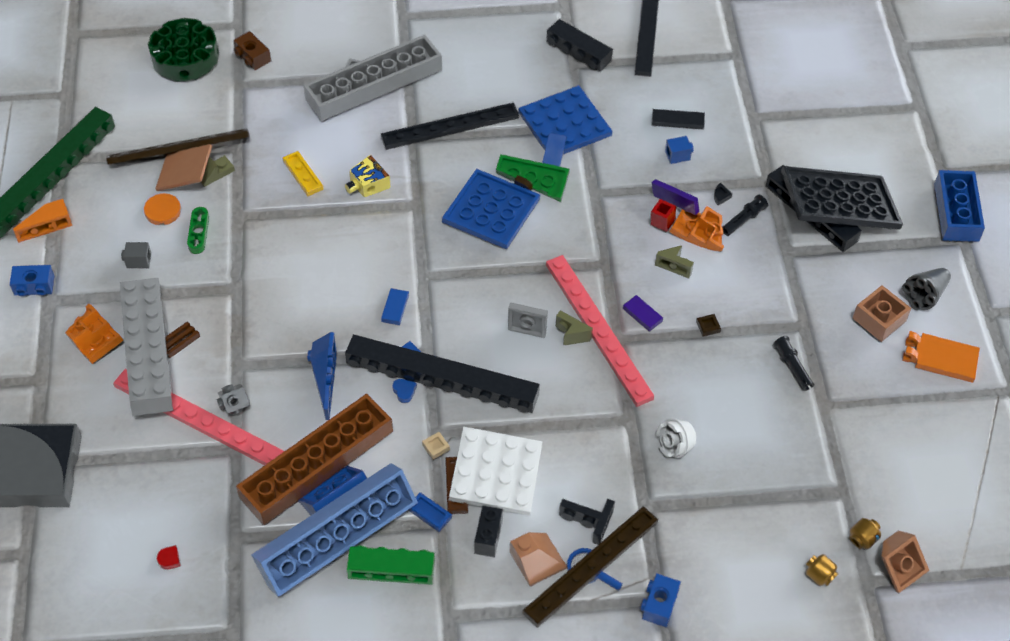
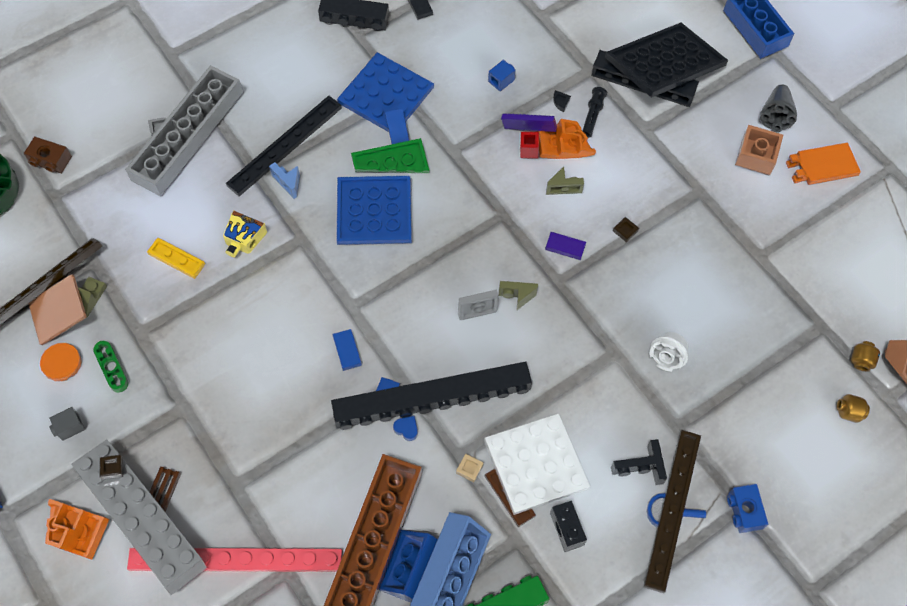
camera: 30 degrees left, 10 degrees up
(146, 296) = (111, 467): none -> dark brown tile
(239, 399) = (257, 524): dark grey brick -> none
(323, 363) = (318, 443): blue wedge -> none
(430, 512) = (505, 534): blue tile -> none
(434, 153) = (289, 180): none -> medium blue slope
(520, 181) = (389, 171): dark brown tile -> none
(536, 557) = (622, 527): nougat slope -> none
(602, 333) = (547, 285): coral plate -> none
(678, 119) = (481, 45): black tile -> none
(790, 356) = (709, 224): black pin -> none

